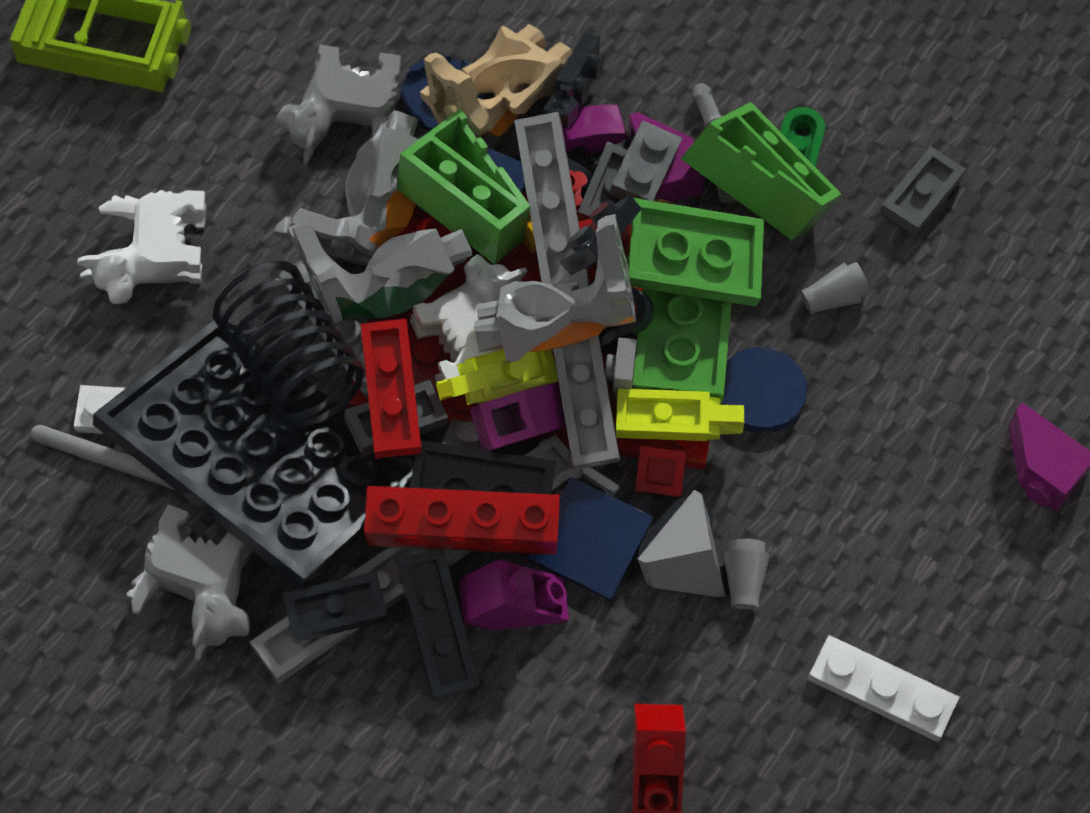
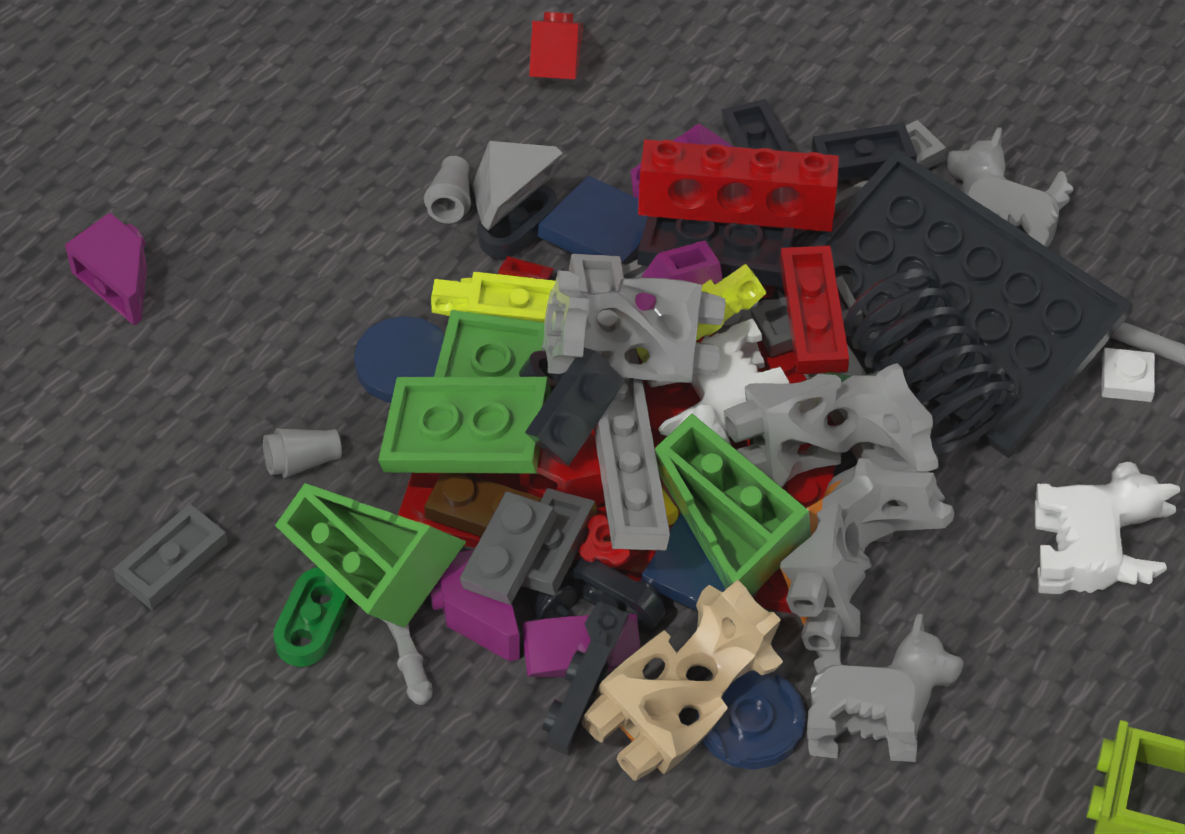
camera: 175 degrees left, 10 degrees down
(883, 688) = (332, 100): white plate -> none

